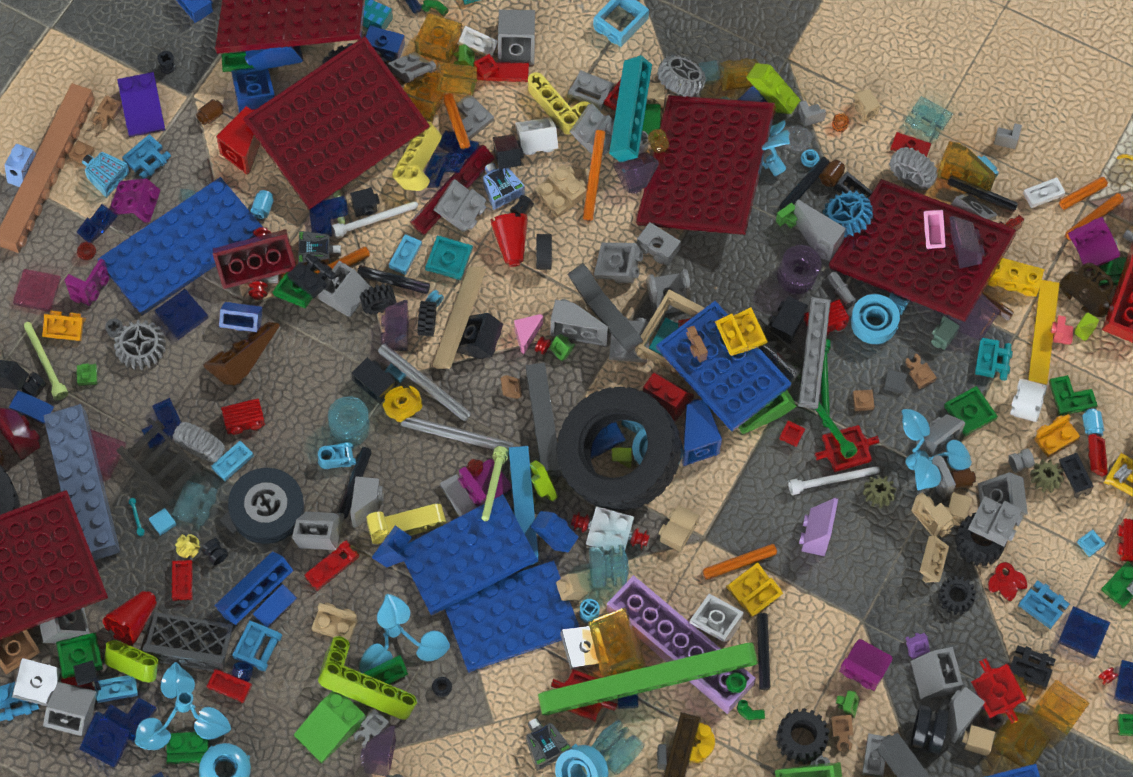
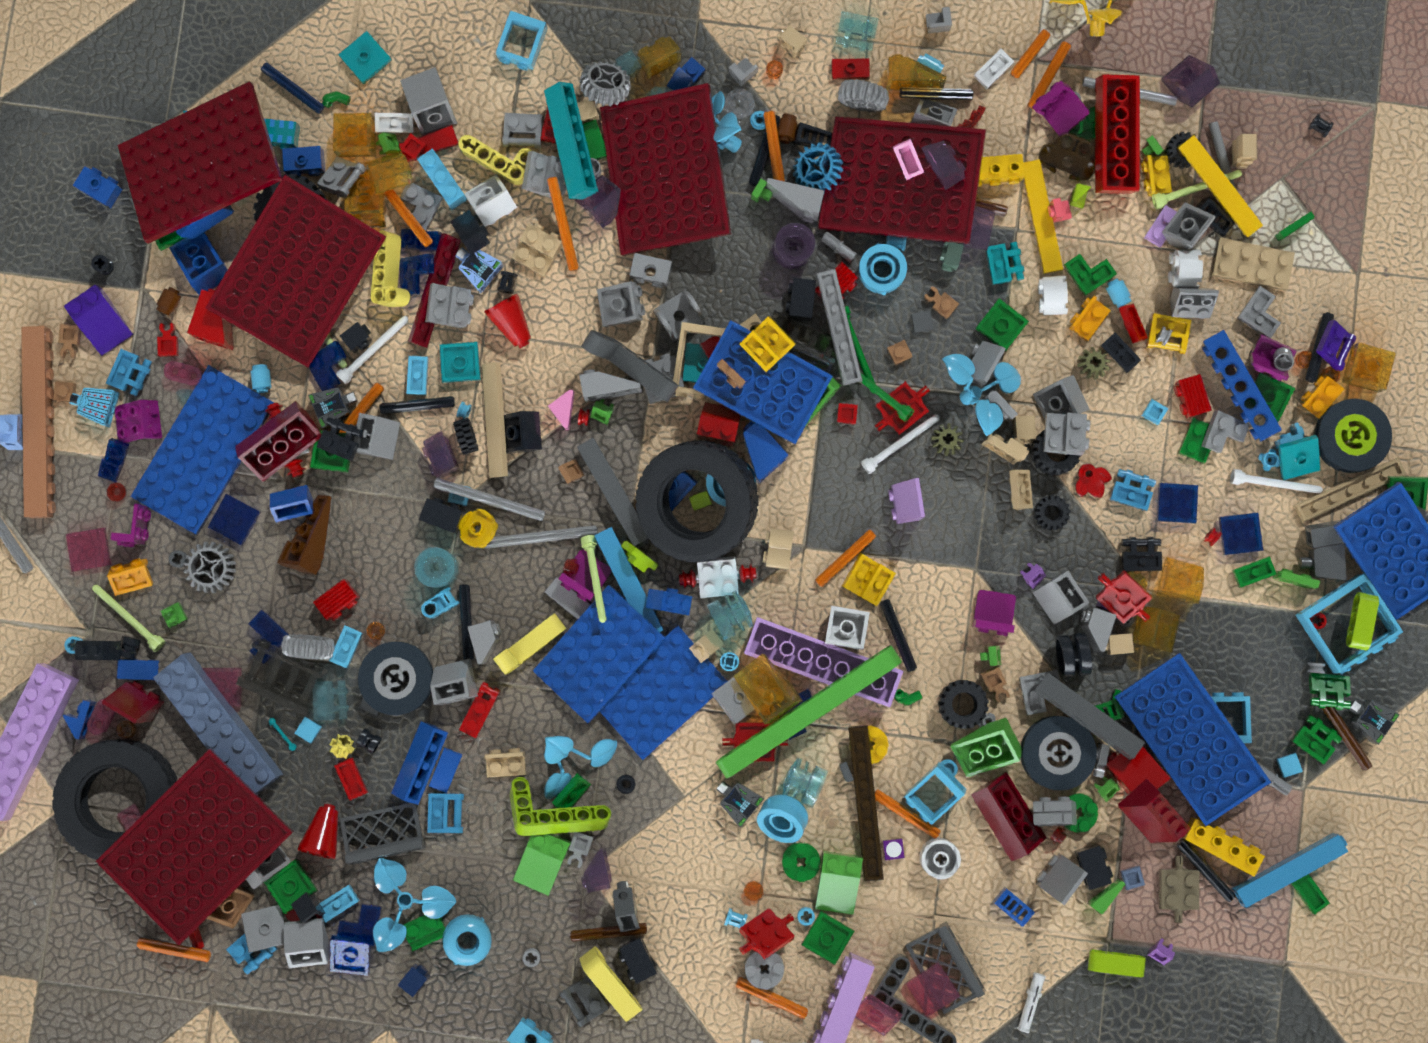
camera: 15 degrees left, 20 degrees up
(131, 661) = (347, 872): lime beam -> none
(193, 146) = (167, 344): none -> red plate
(196, 176) = (184, 373): none -> clear pink plate
(229, 685) = (437, 860): red plate -> none
(242, 671) = (442, 842): clear blue tile -> none
(269, 452) = (370, 630): none -> clear orange bush
(377, 299) = (411, 434): black tyre -> none
(390, 550) = (527, 674): blue slope -> none
(501, 102) = (442, 179): none -> medium azure arch
(544, 251) = (547, 323): black tyre -> none
(656, 144) = (613, 164): clear yellow wheel -> none
(736, 682) = (888, 684): green plate -> none
(773, 88) = (699, 64): lime brick -> none
(815, 178) = (774, 146): none -> orange axle
(963, 478) = (1018, 397): reddish brown brick -> none
(1021, 460) = (1065, 357): light grey wheel -> none

